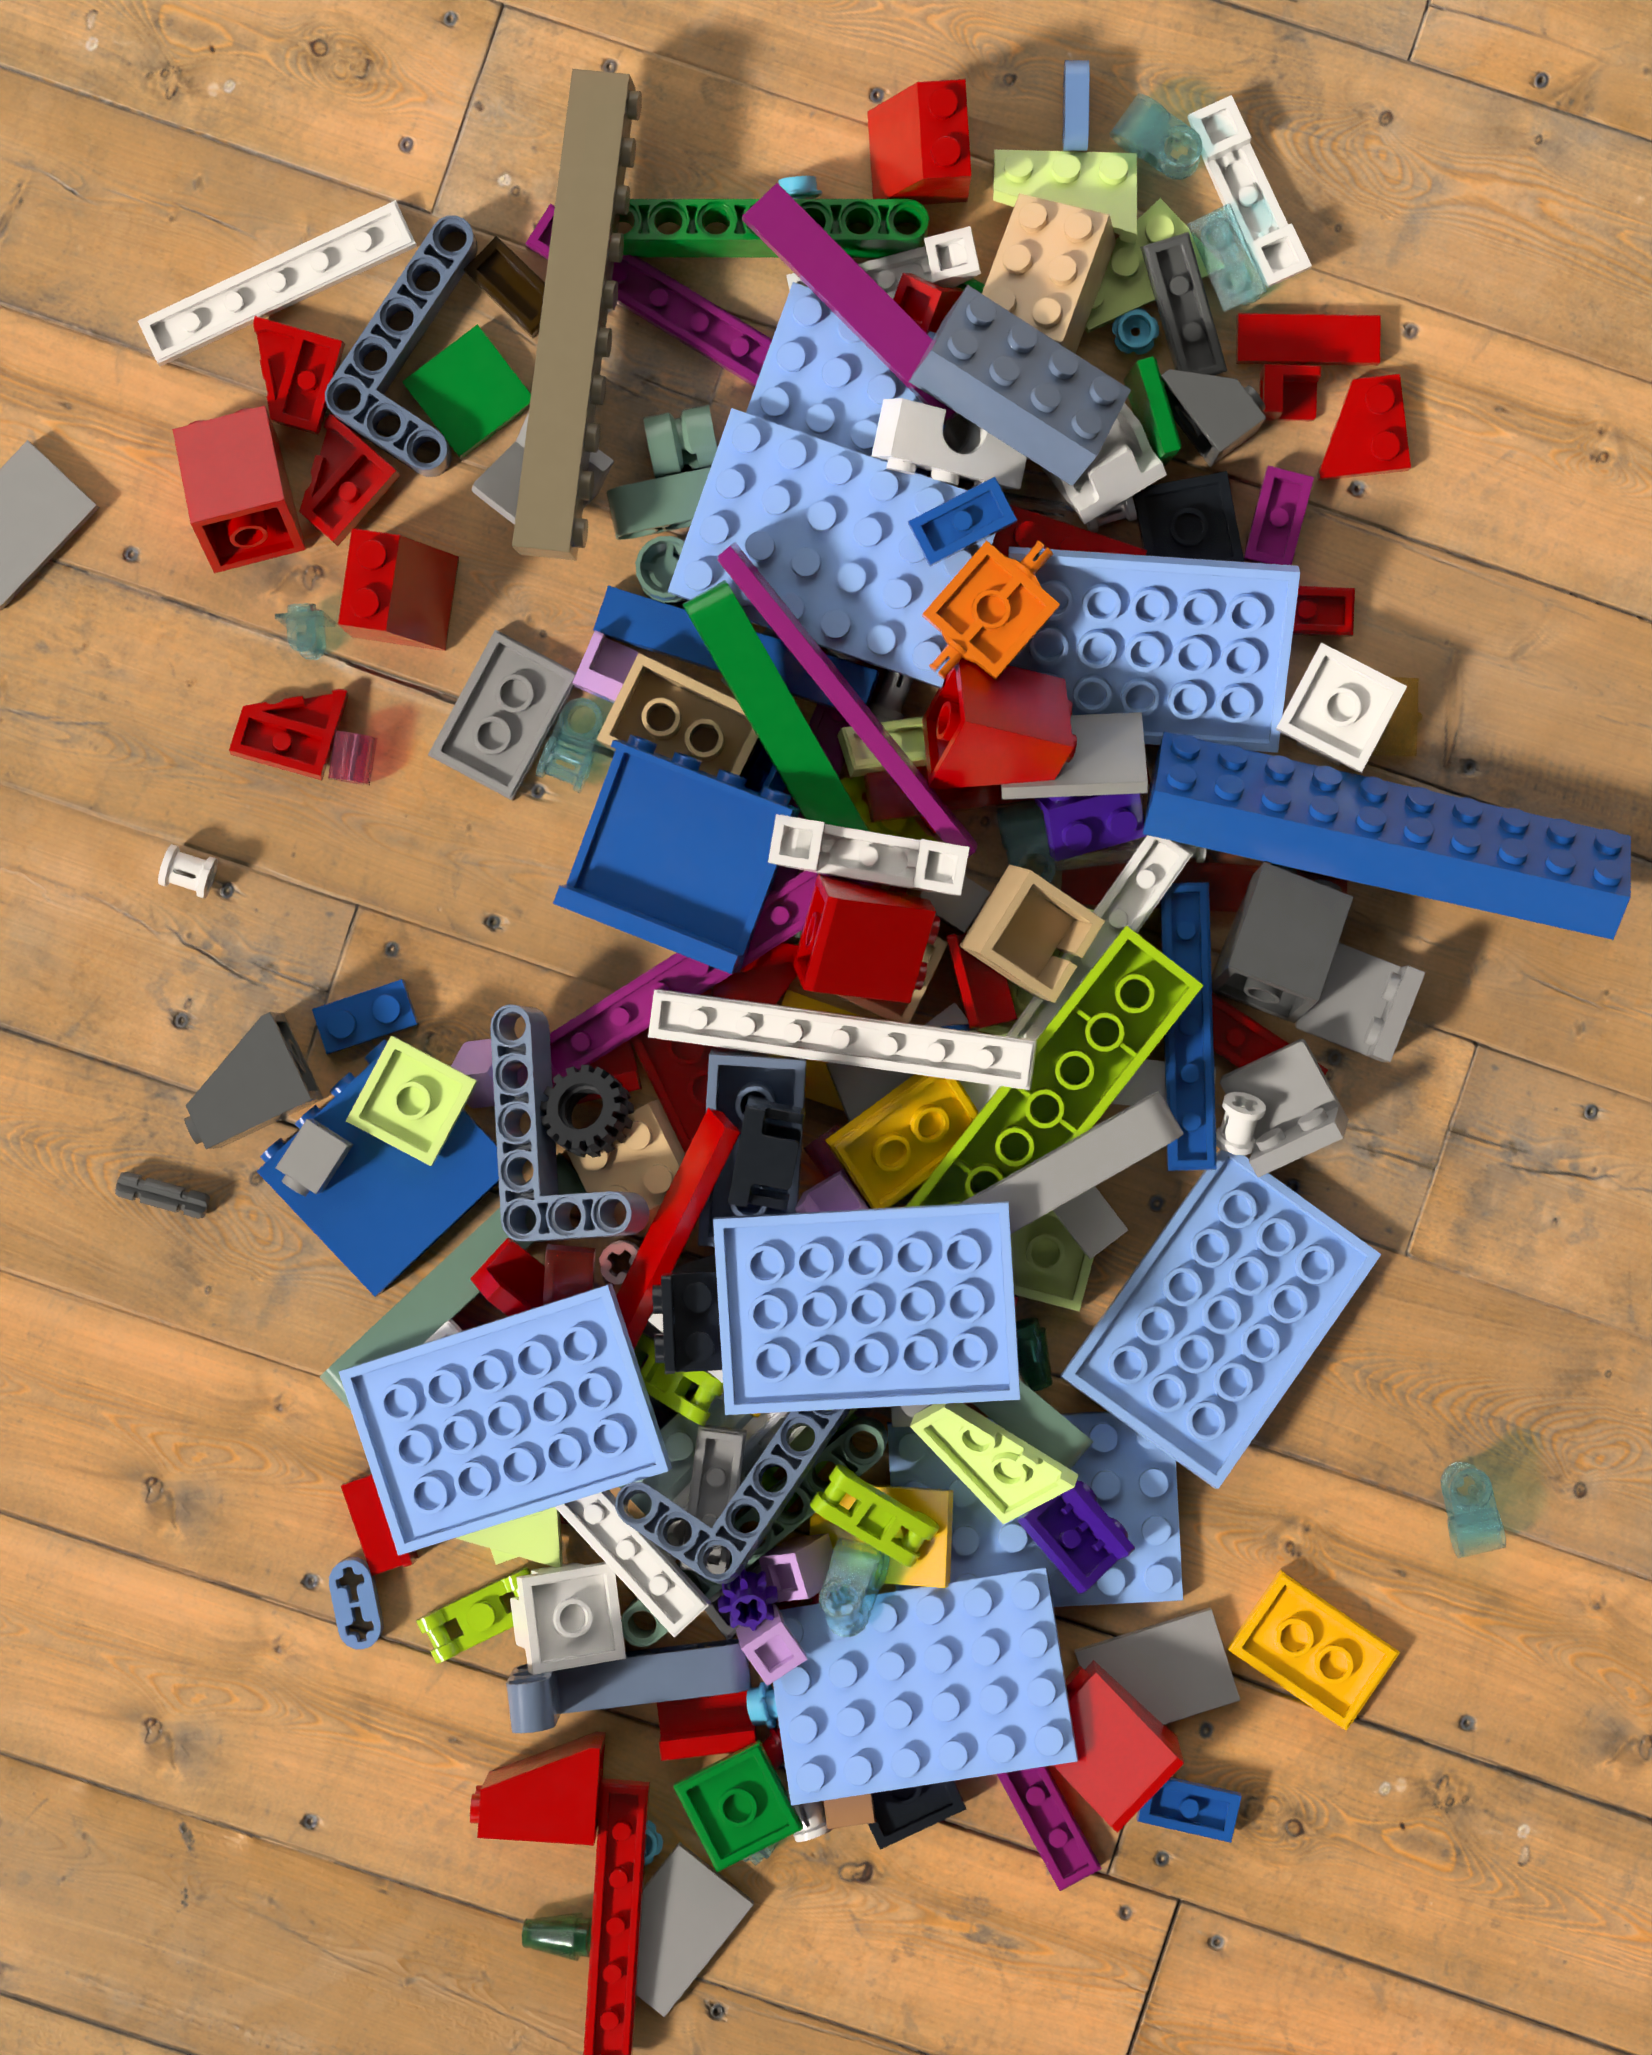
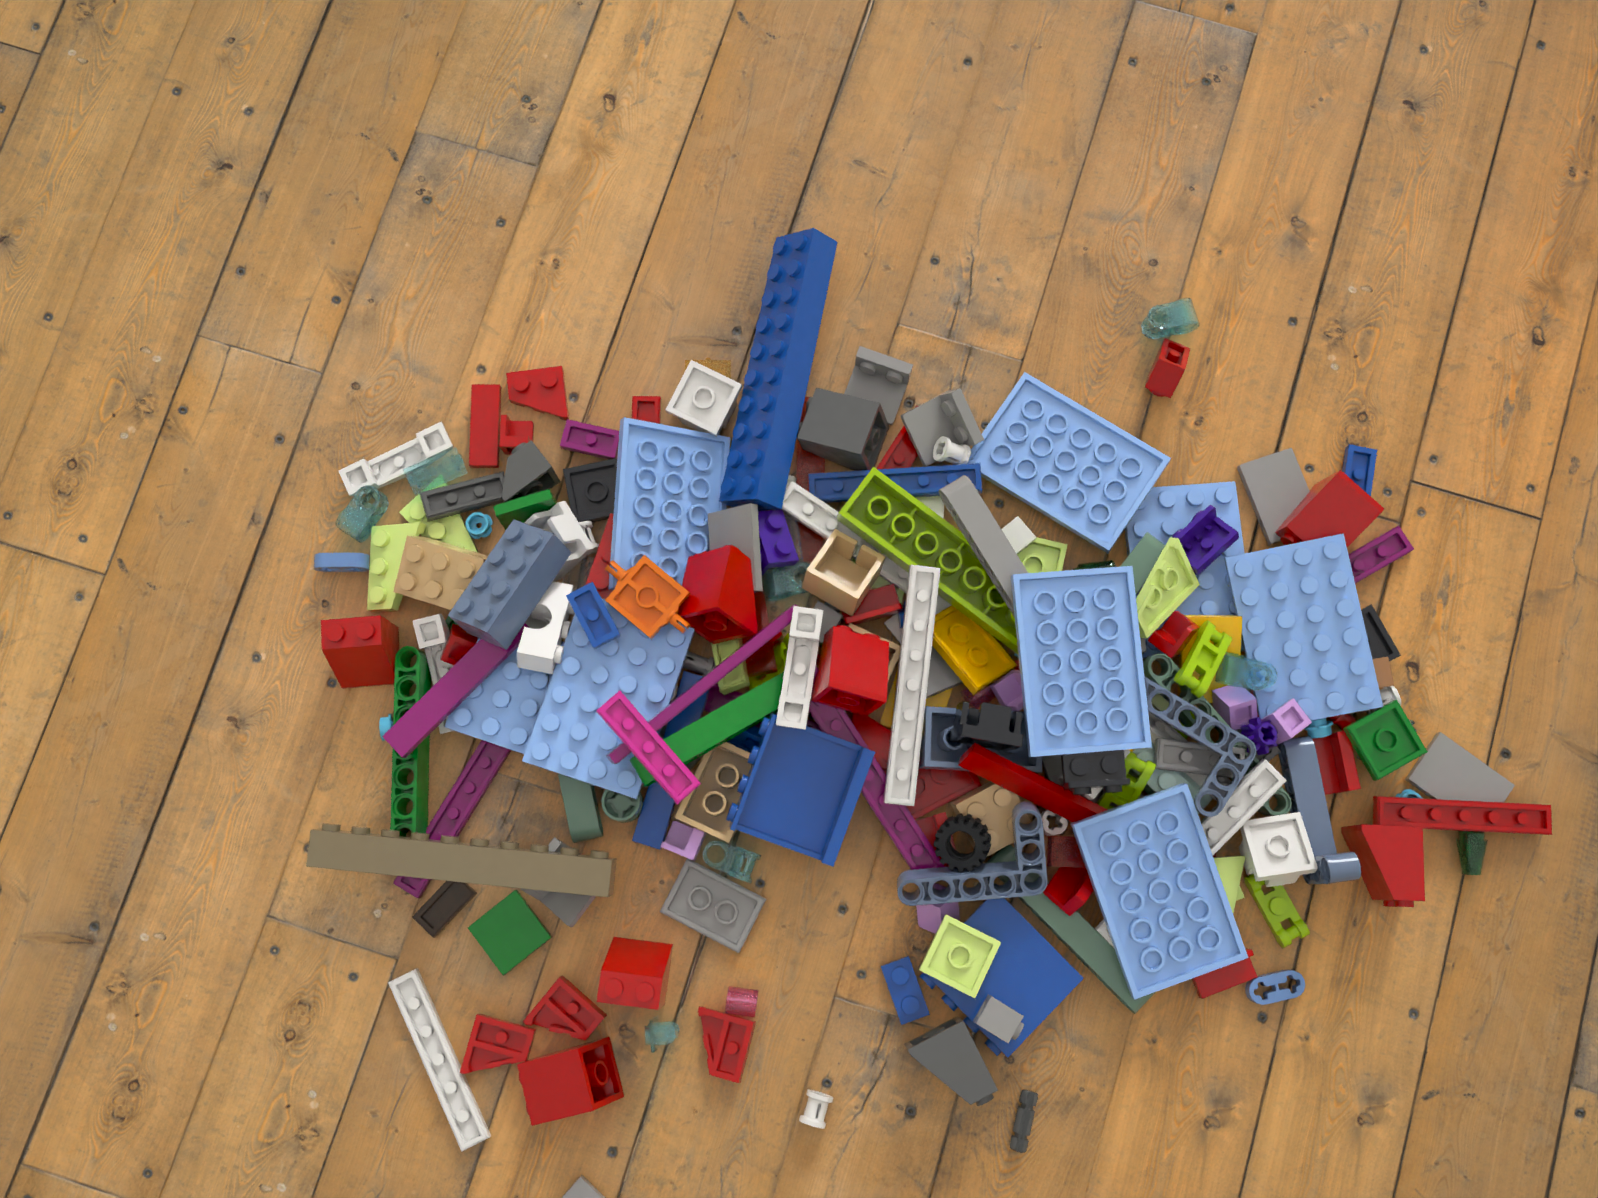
camera: 90 degrees left, 10 degrees down
(399, 346) = (480, 978): sand blue beam -> none
(680, 441) = (542, 795): sand green wheel -> none
(741, 609) = (648, 747): none -> dark pink tile
(916, 1473) = (1174, 634): none -> red panel
(1313, 1650) = (1257, 407): yellow tile -> none
(1384, 1499) = (1167, 368): none -> red slope

